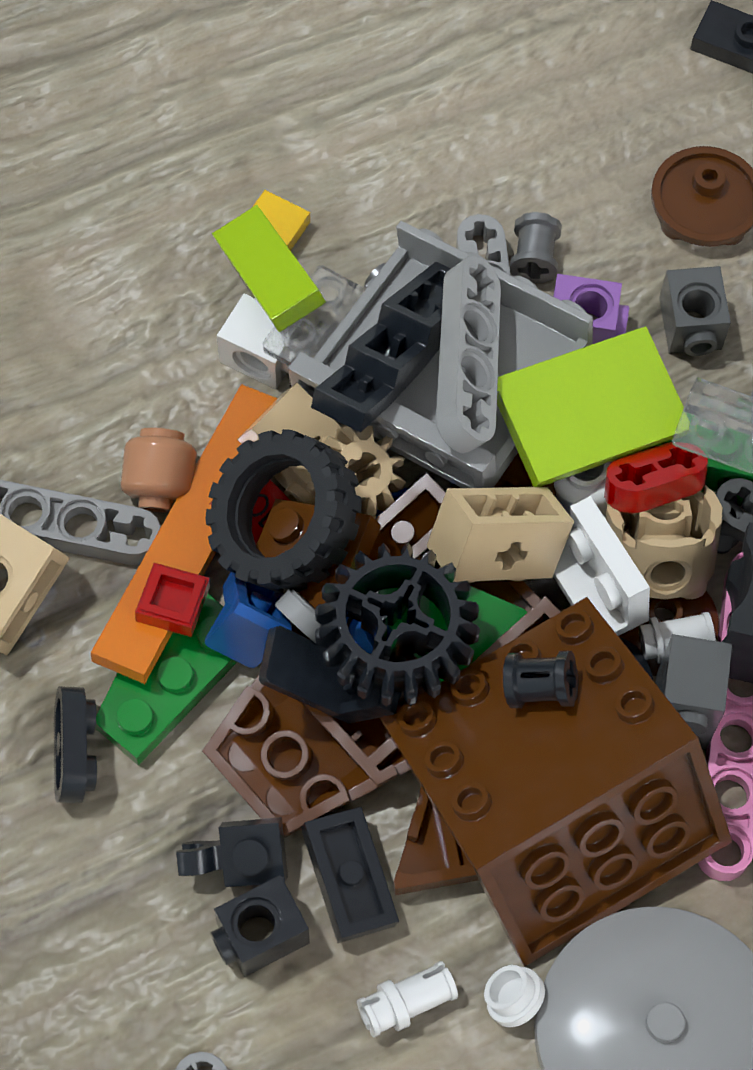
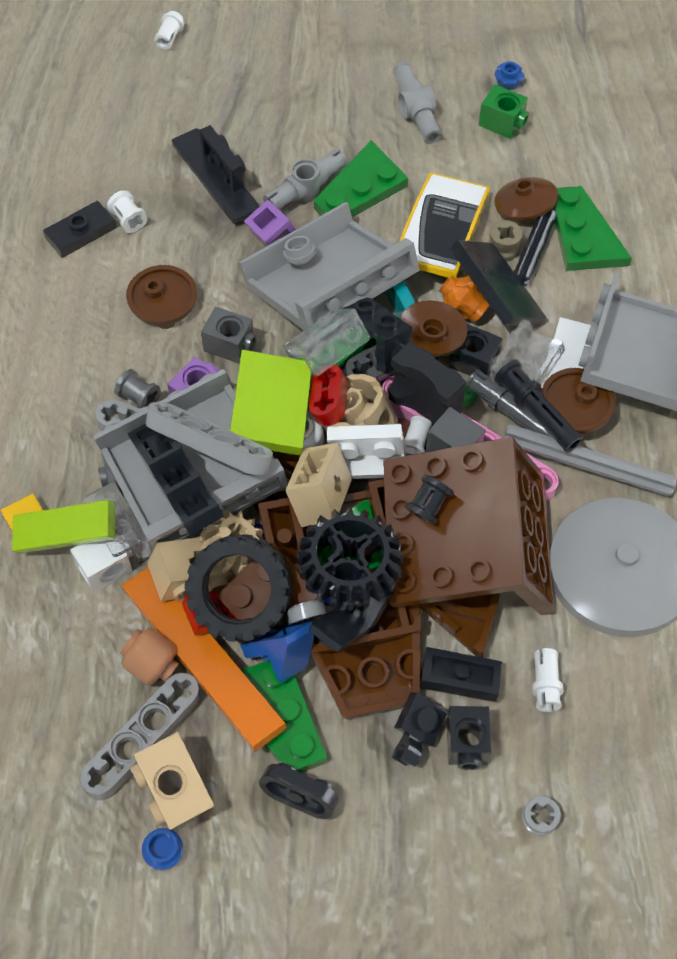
camera: 60 degrees left, 5 degrees down
(172, 599) = (246, 683): red tile -> none
(514, 995) = (573, 624): white plate -> none

